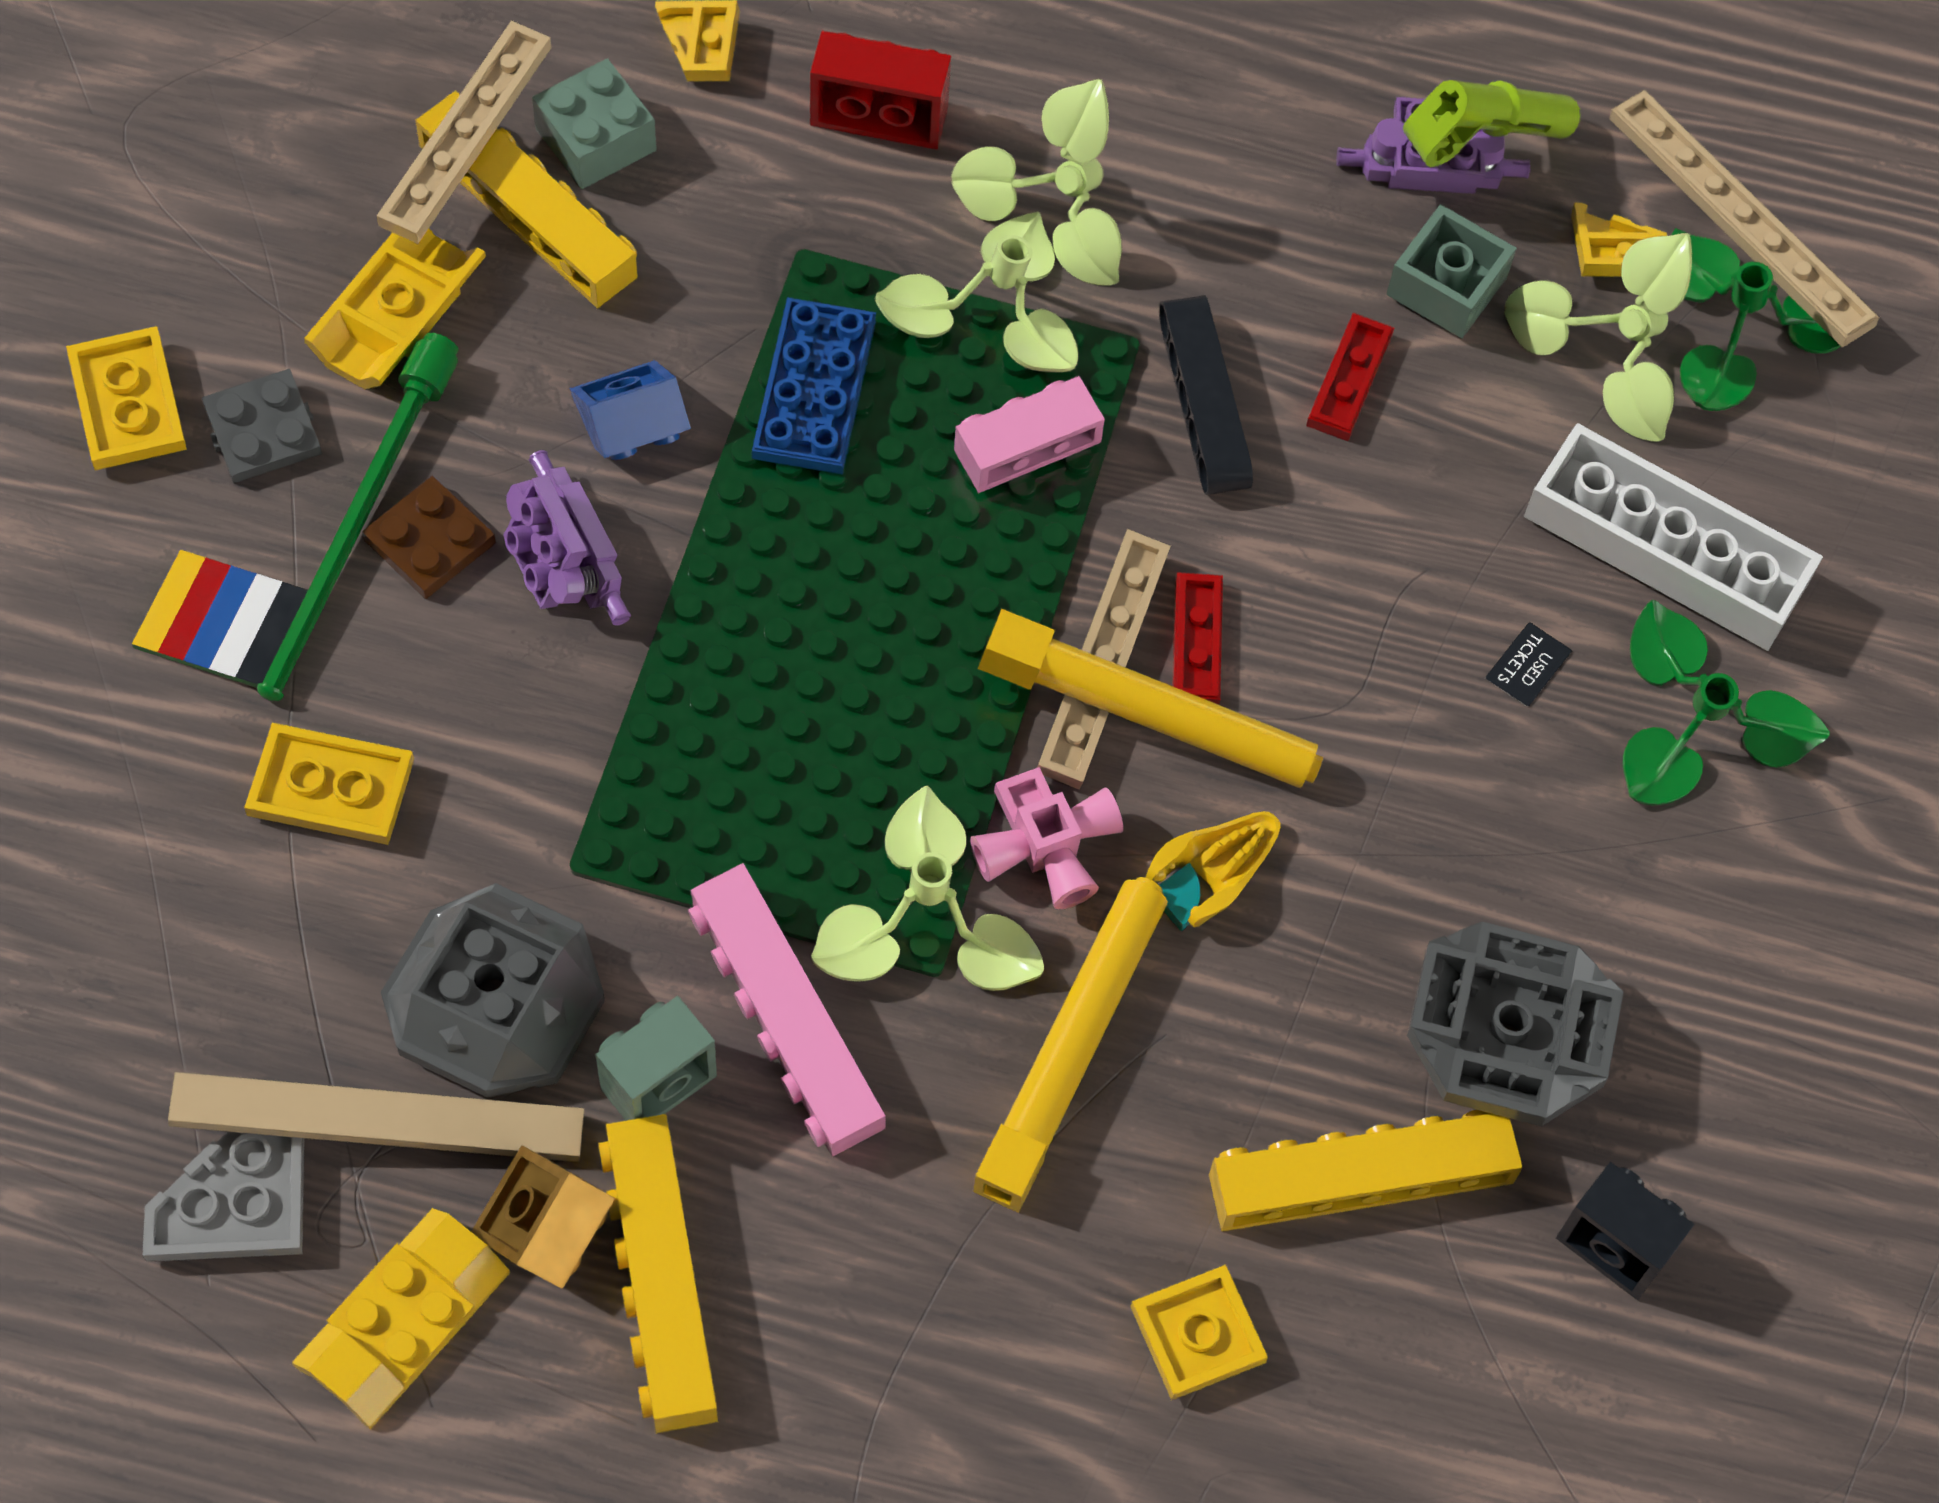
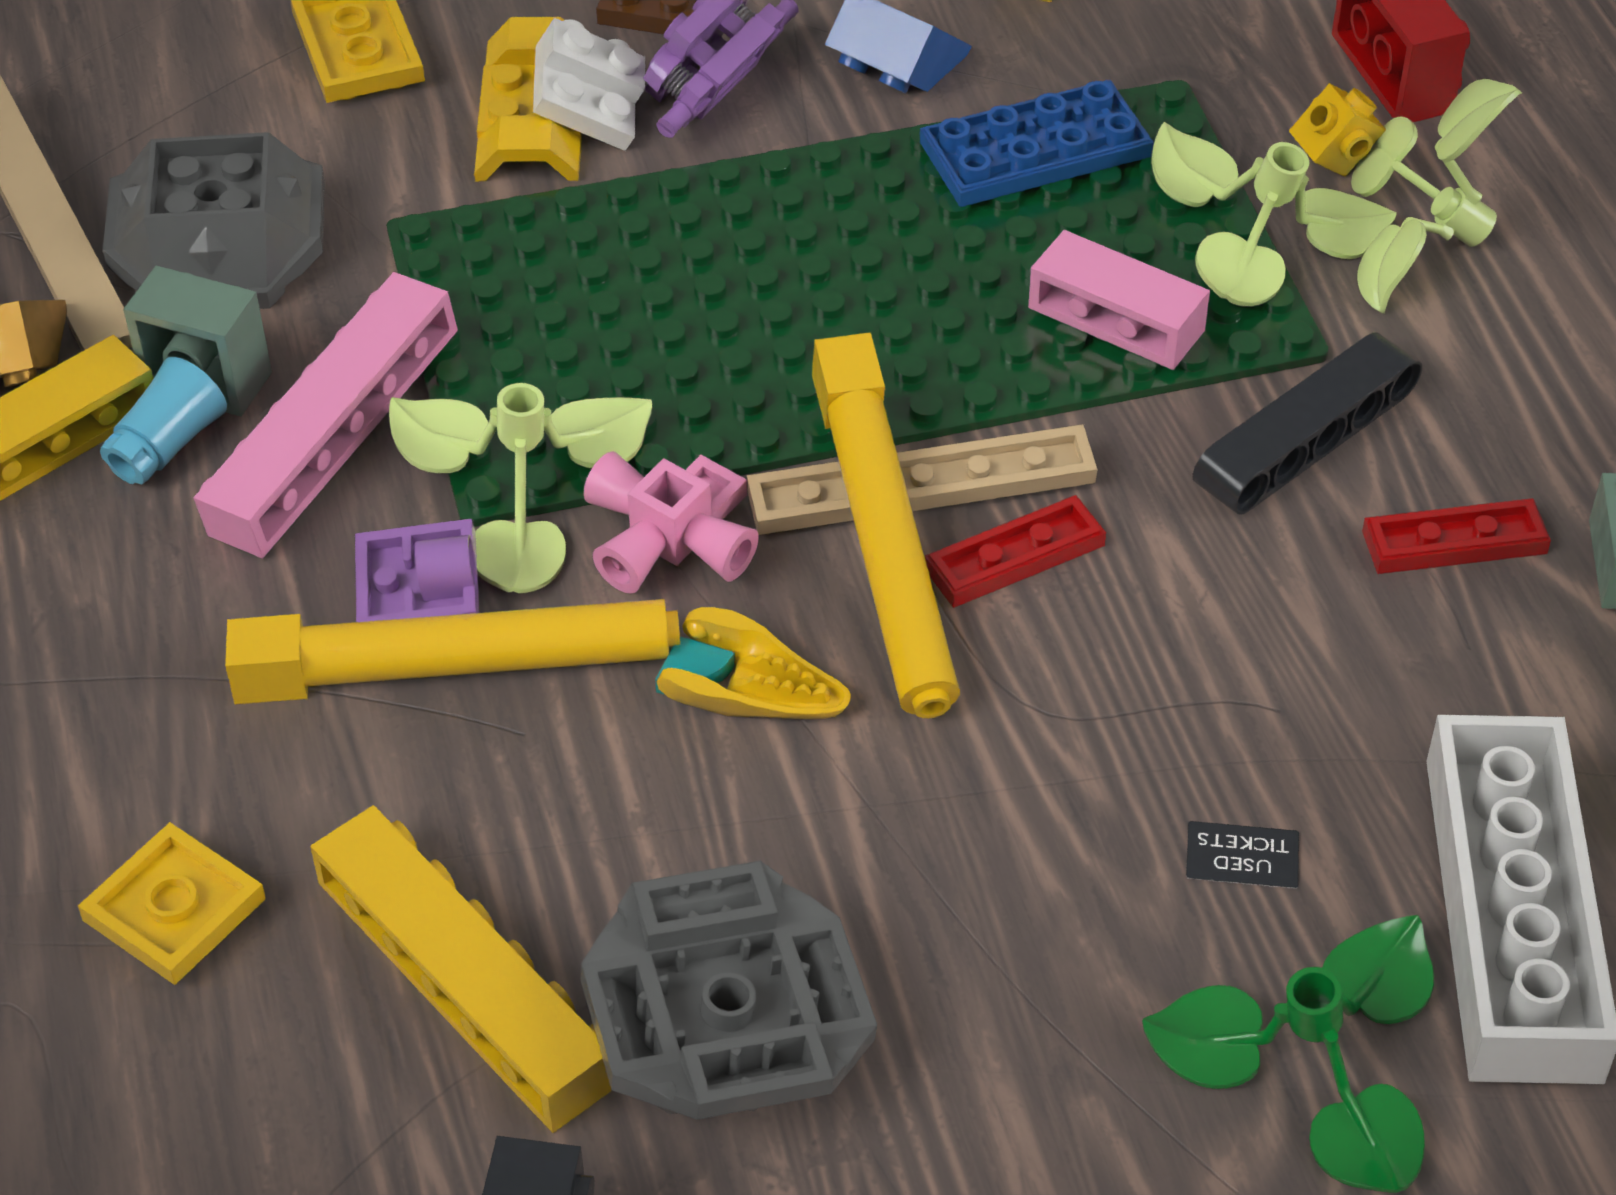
camera: 65 degrees right, 15 degrees down
(499, 696) = (506, 117): none -> yellow piece
(532, 645) = (588, 82): none -> white plate
(712, 1133) = (163, 420): none -> medium azure plant
(943, 205) = (1338, 129): none -> yellow brick
(993, 1030) = (416, 571): none -> medium lavender plate

